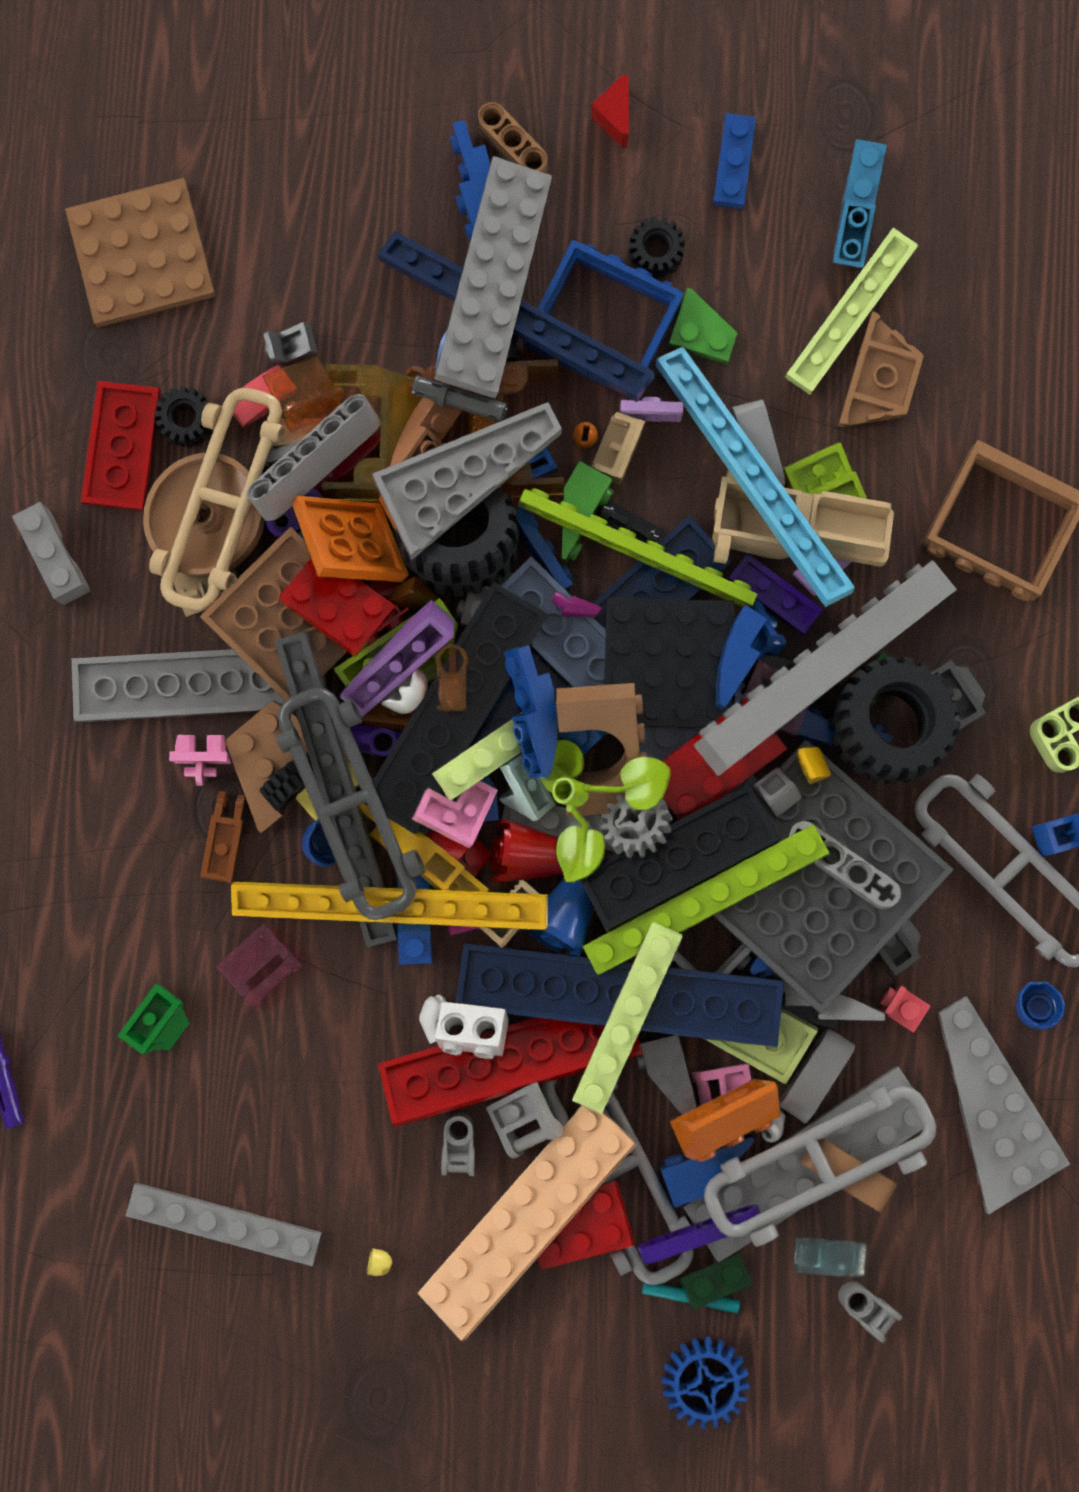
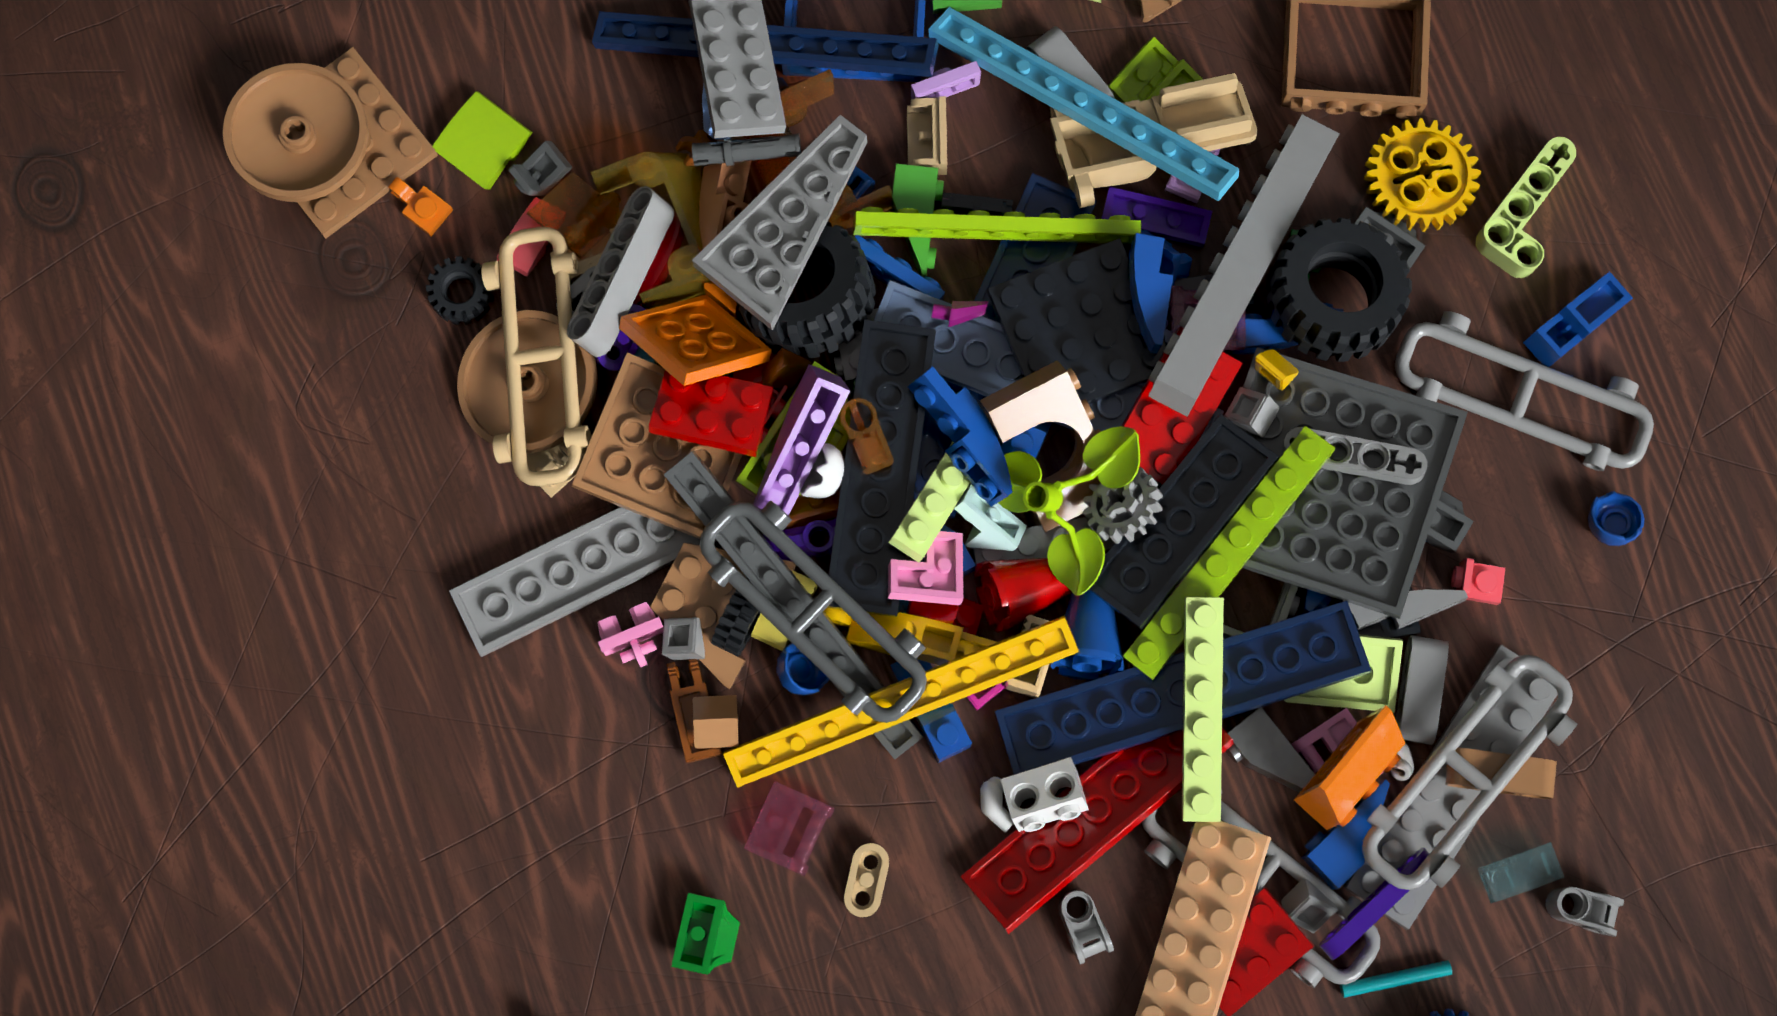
camera: 25 degrees left, 5 degrees down
(49, 553) = (380, 490): light grey arch -> none
(103, 230) = (295, 132): none -> medium nougat dish
(120, 446) = (405, 349): red plate -> none
(184, 335) = (422, 208): none -> orange plate
(236, 855) = (715, 721): none -> medium nougat panel
(239, 777) = (683, 639): none -> light grey slope
(254, 299) = (482, 140): none -> lime slope
(303, 1033) = (866, 880): none -> tan plate
(519, 1110) = (1130, 860): light grey plate -> none
(592, 436) = (880, 138): orange hinge -> none
(645, 1209) = (1308, 906): none -> light grey slope
(715, 1281) = (1415, 950): dark green plate -> none
(1001, 1123) = (1631, 657): light grey wing -> none
(1012, 625) = (1432, 203): none -> yellow gear

